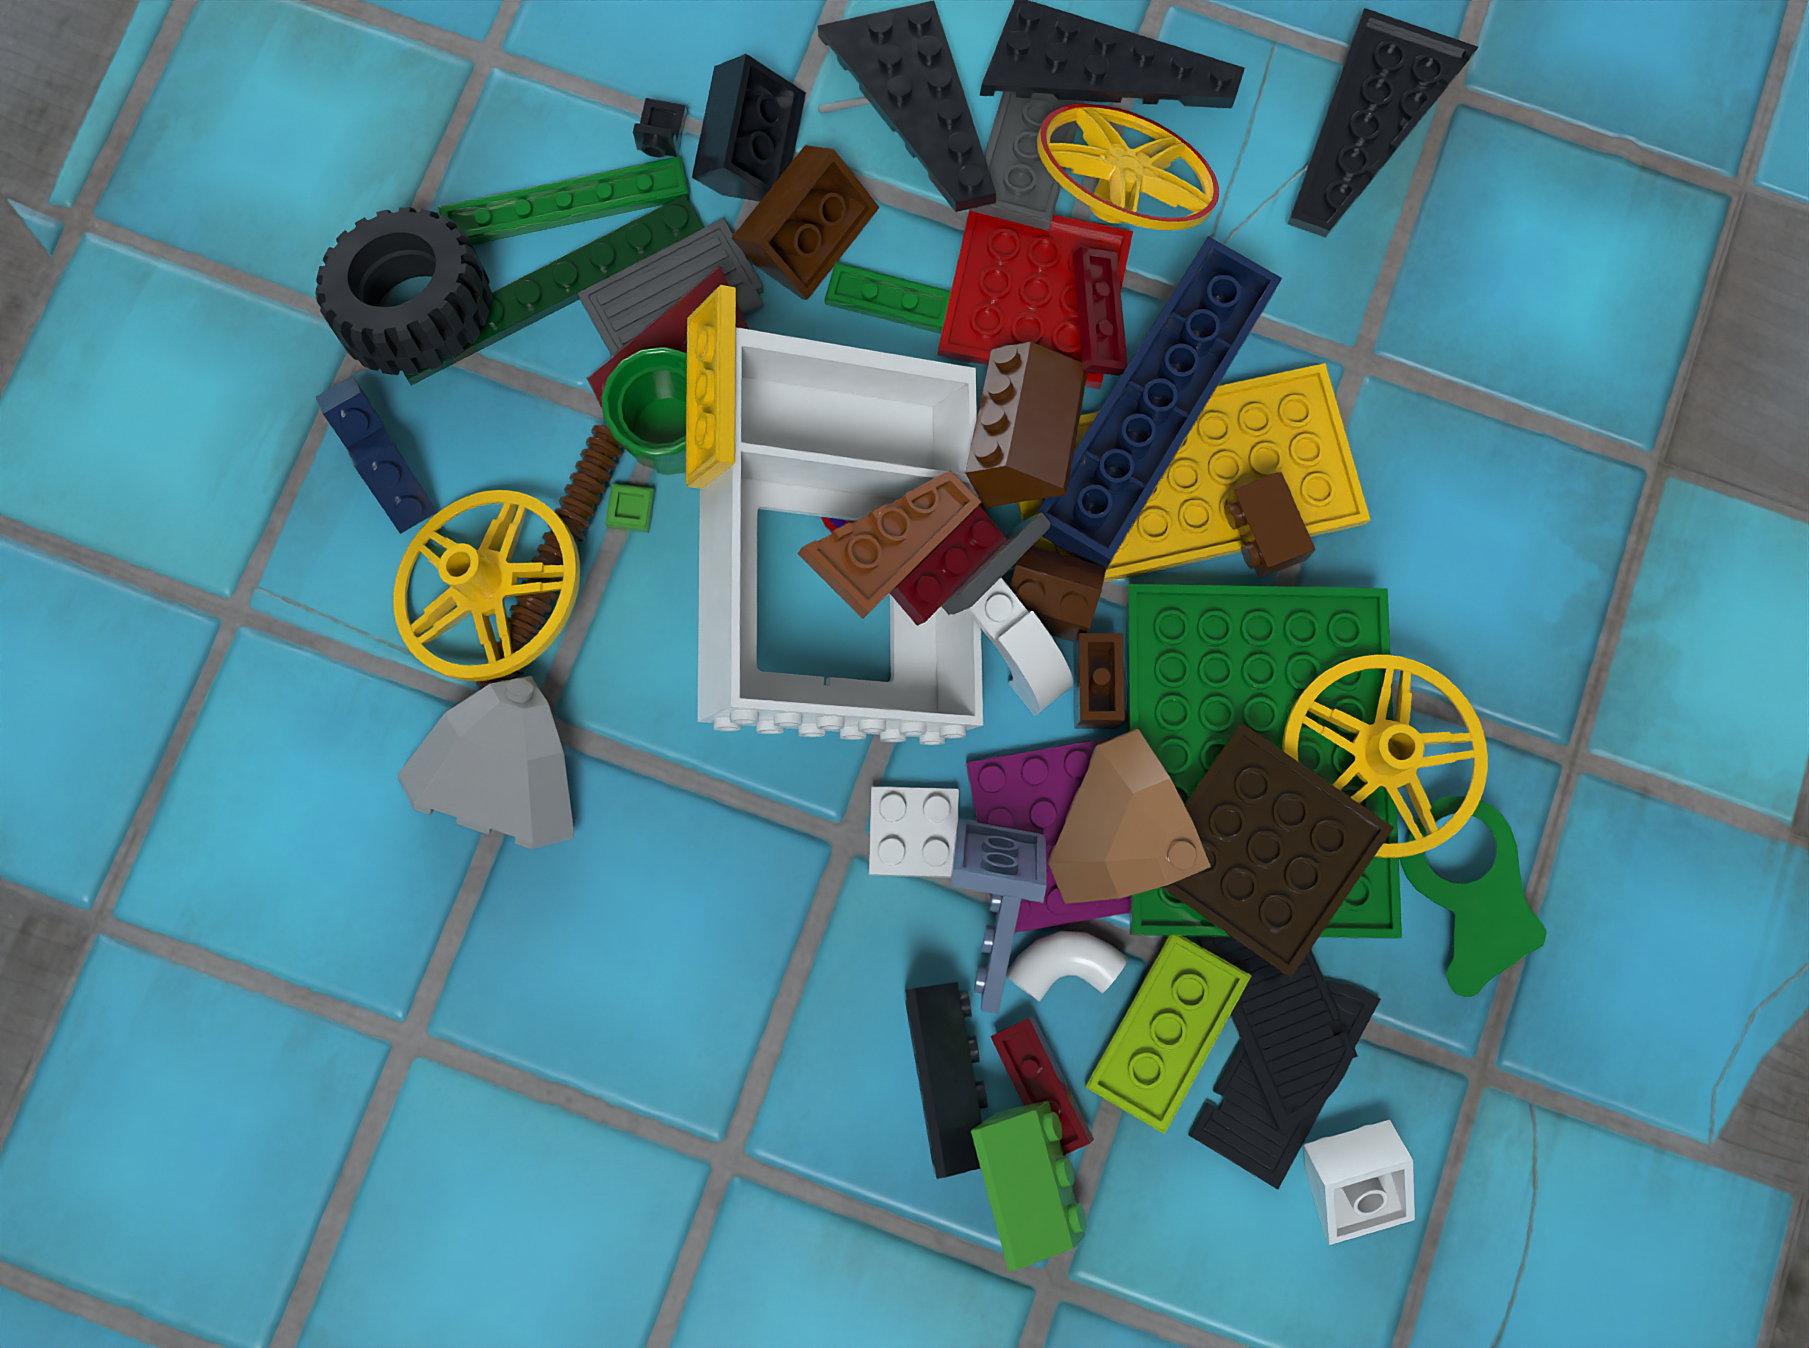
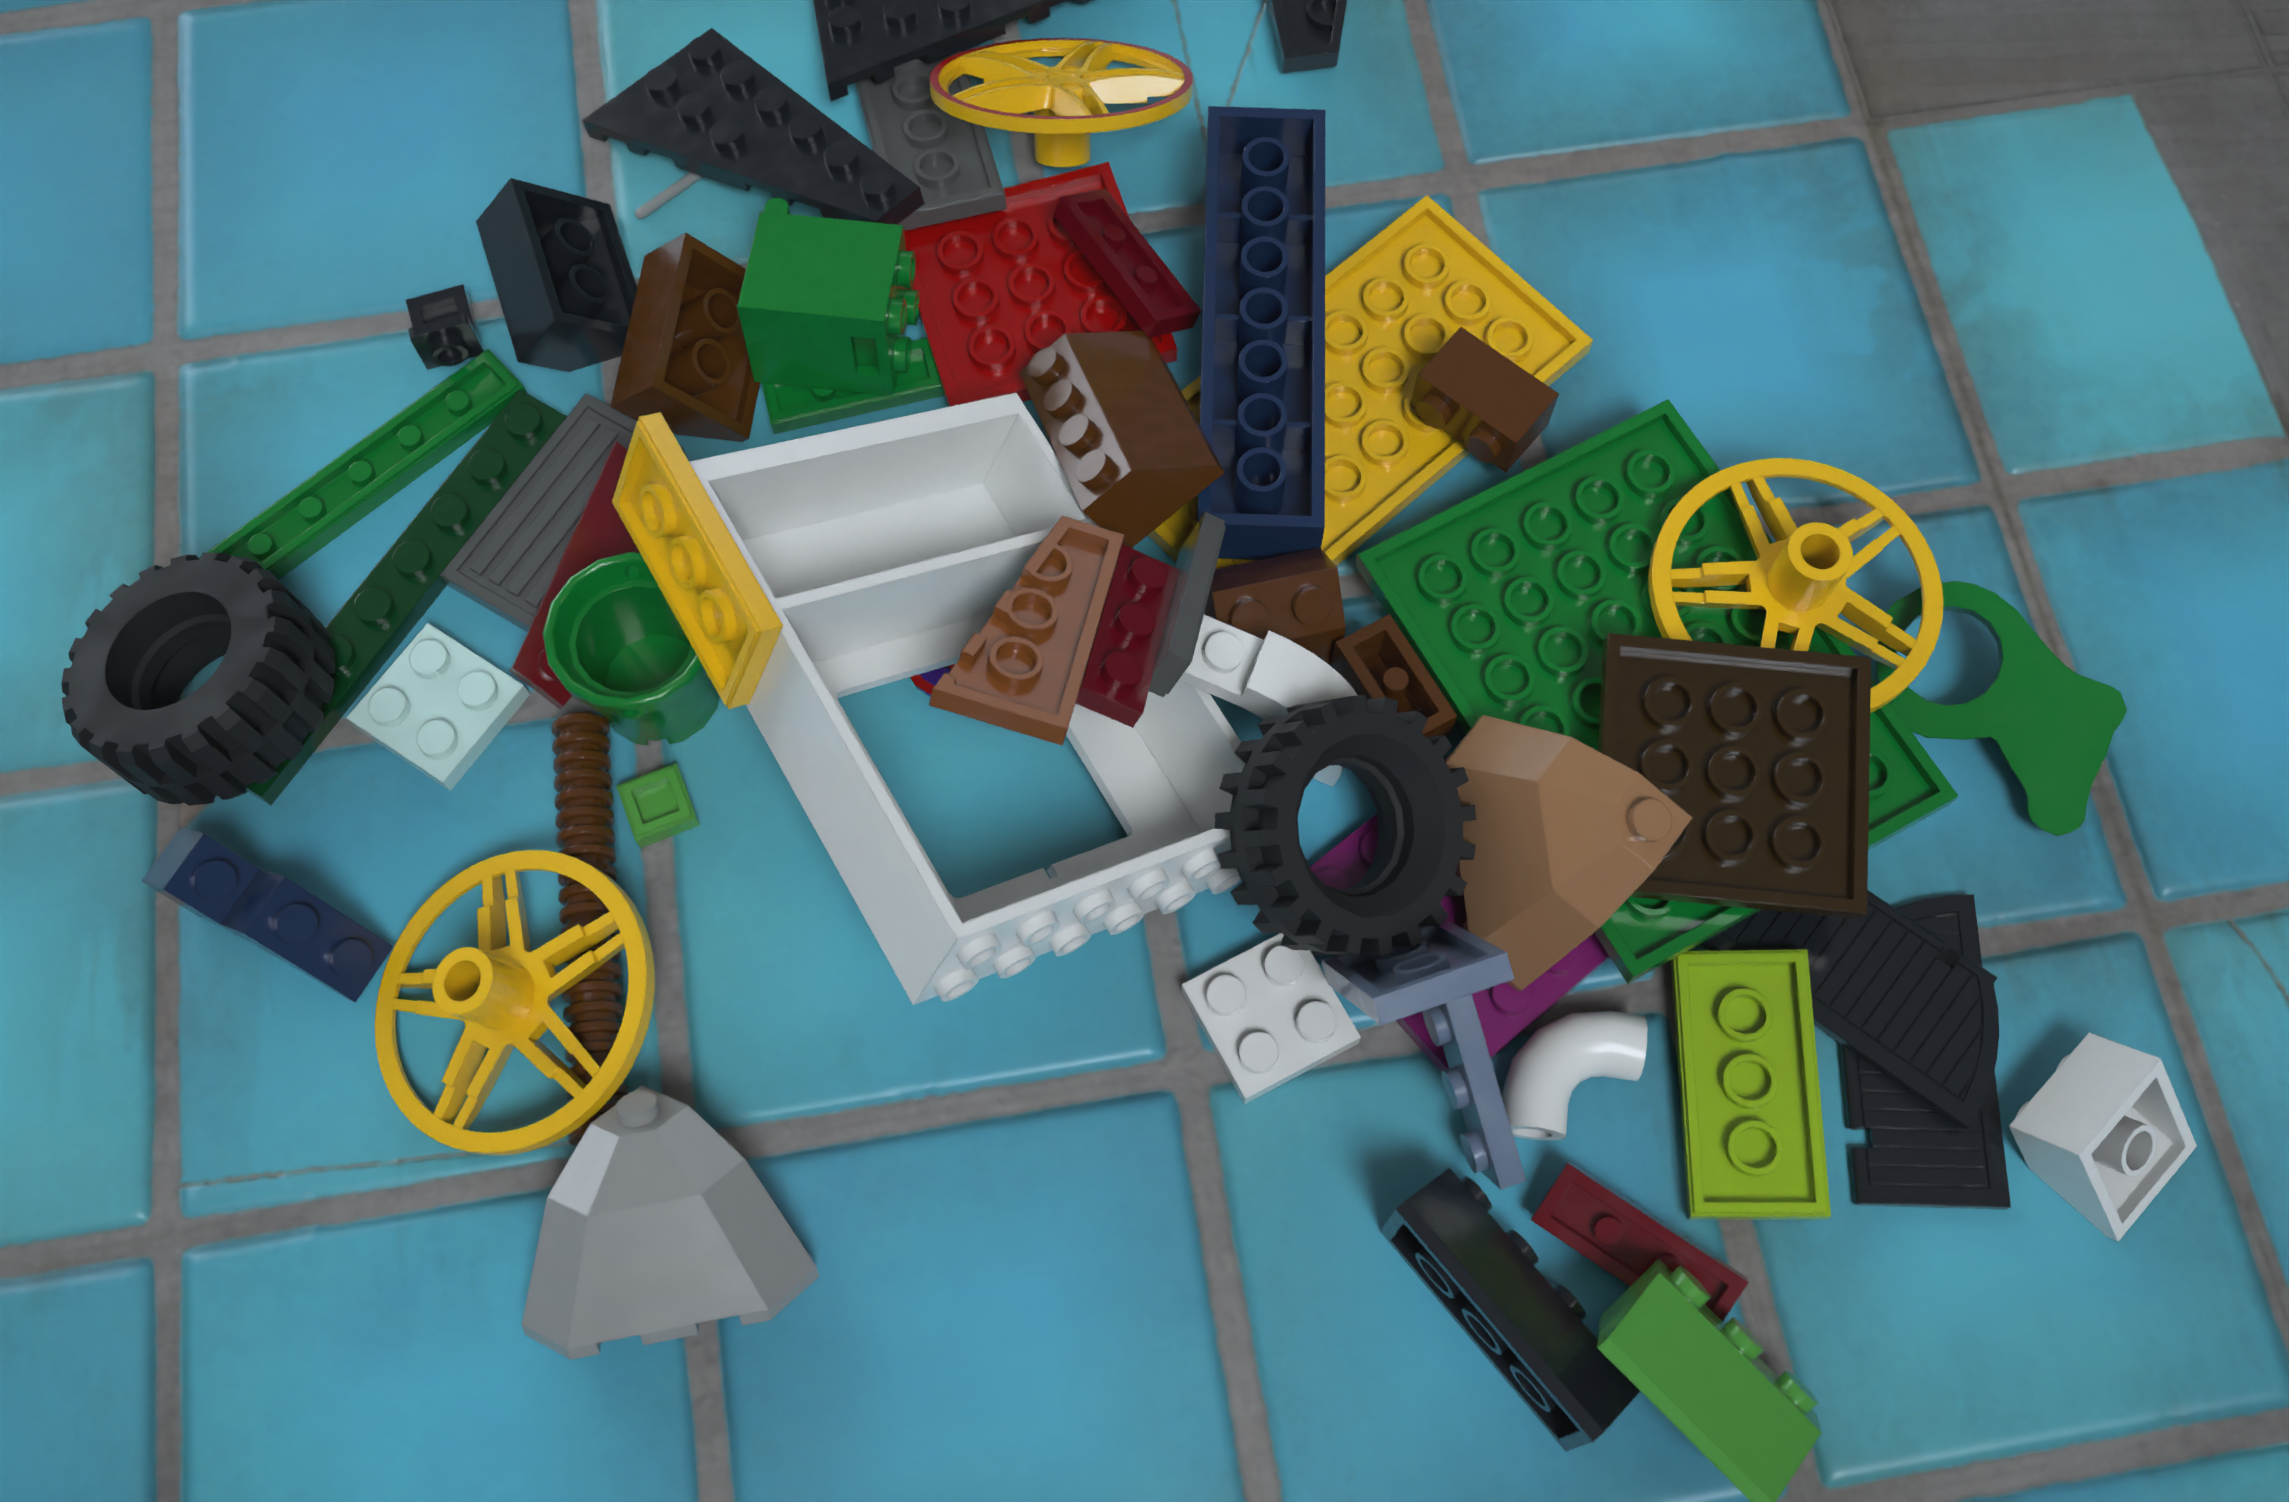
camera: 25 degrees left, 10 degrees down
(535, 376) = (438, 706): none -> light aqua plate
(897, 240) = (828, 302): none -> green container
(1051, 783) = (1416, 827): none -> black tyre

